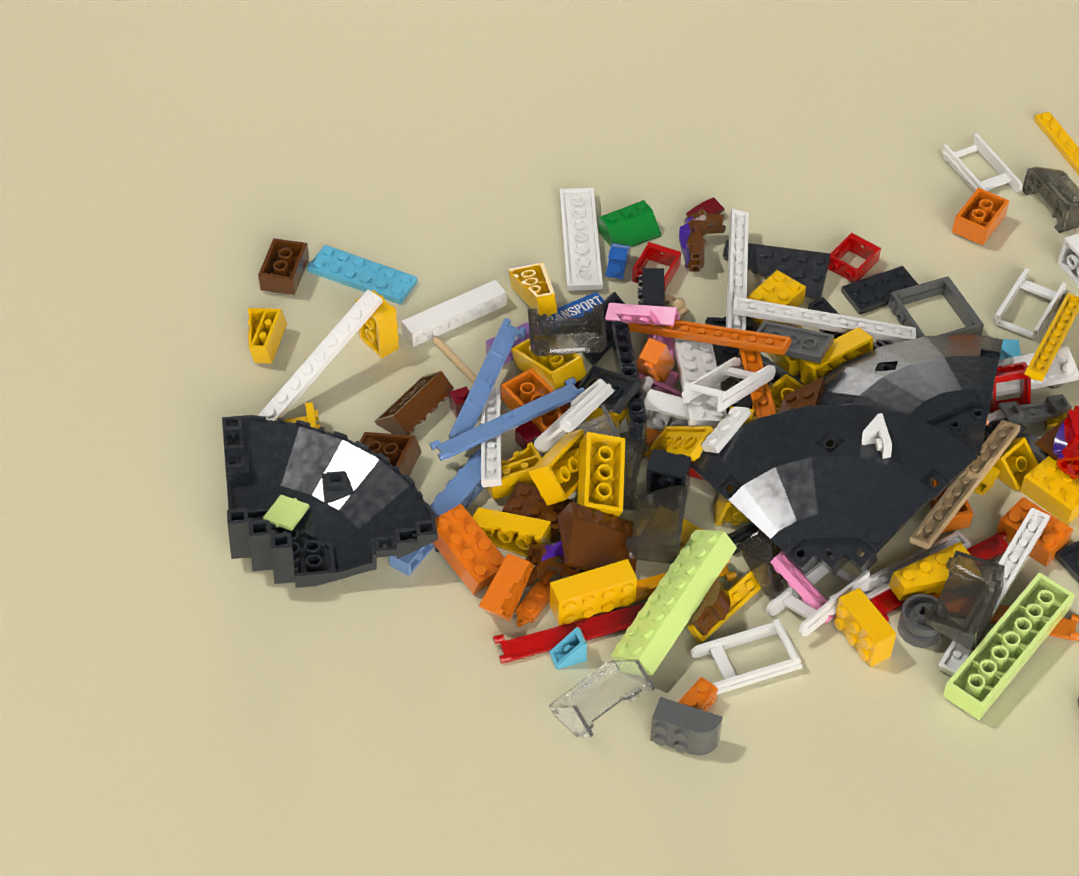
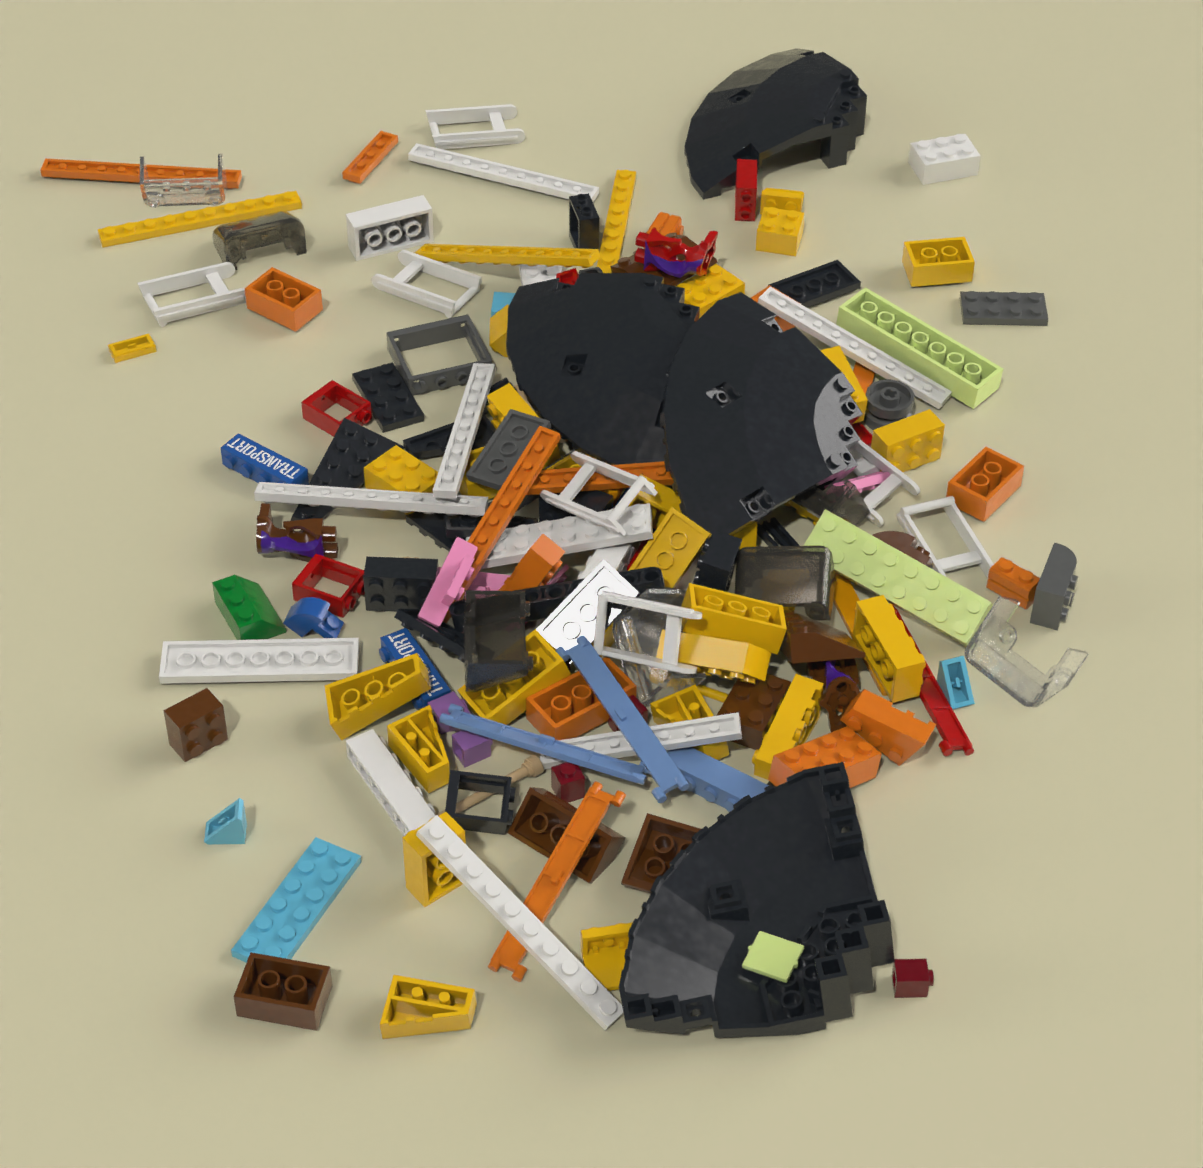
camera: 90 degrees left, 5 degrees down
(268, 601) = (911, 978): none -> dark red brick
(375, 393) = (557, 872): none -> orange piece
(426, 236) = (227, 826): none -> medium azure slope
(438, 337) = (481, 783): none -> black window
(486, 320) = (420, 748): none -> yellow wedge
(509, 206) = (195, 724): none -> reddish brown brick
(710, 206) = (230, 535): dark red slope -> none
(726, 429) = (679, 496): white plate -> none
(782, 222) = (261, 463): none -> blue brick
(804, 396) = (617, 444): reddish brown wing -> none
(822, 687) = (985, 483): none -> orange brick
(877, 433) = (725, 345): white slope -> none
(909, 147) = (132, 348): none -> yellow tile
(967, 599) = (884, 357): clear smoke windscreen -> none

